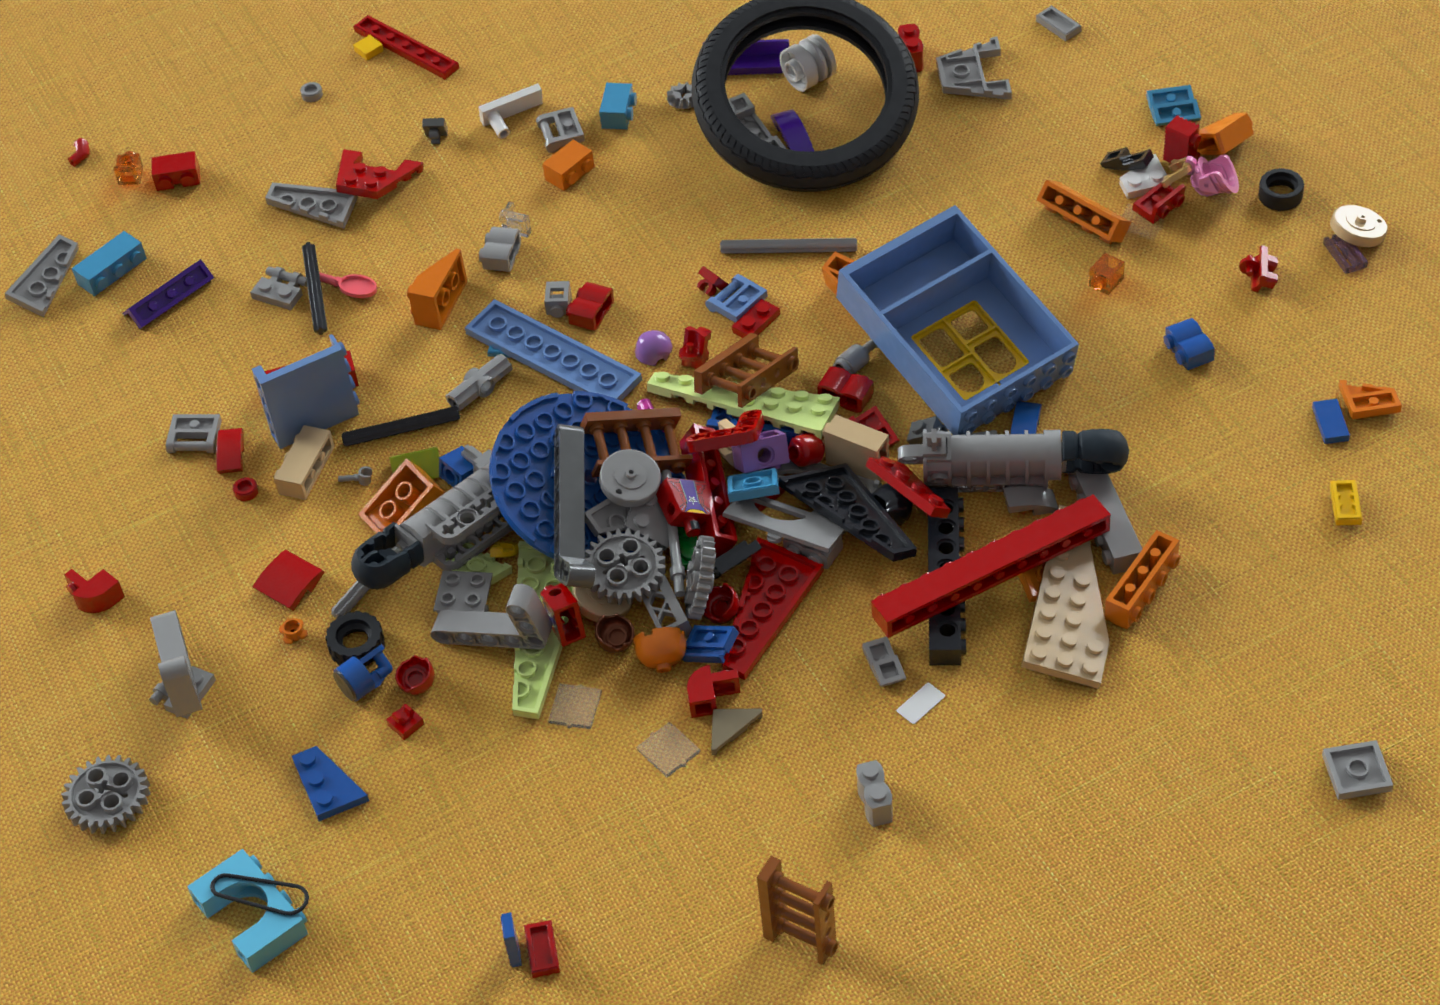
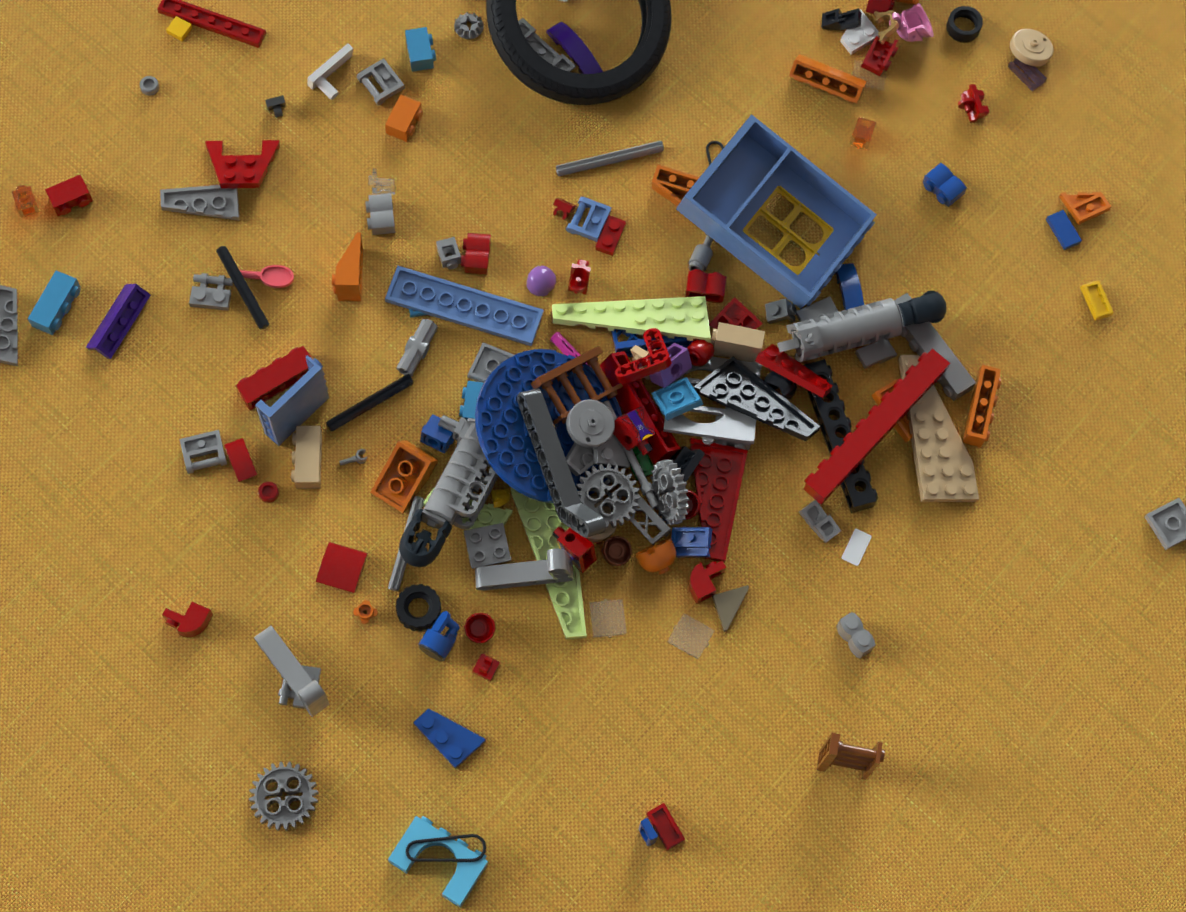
camera: 30 degrees left, 20 degrees up
(426, 459) = (398, 431): lime panel -> none
(742, 355) = (615, 281): dark orange fence -> none

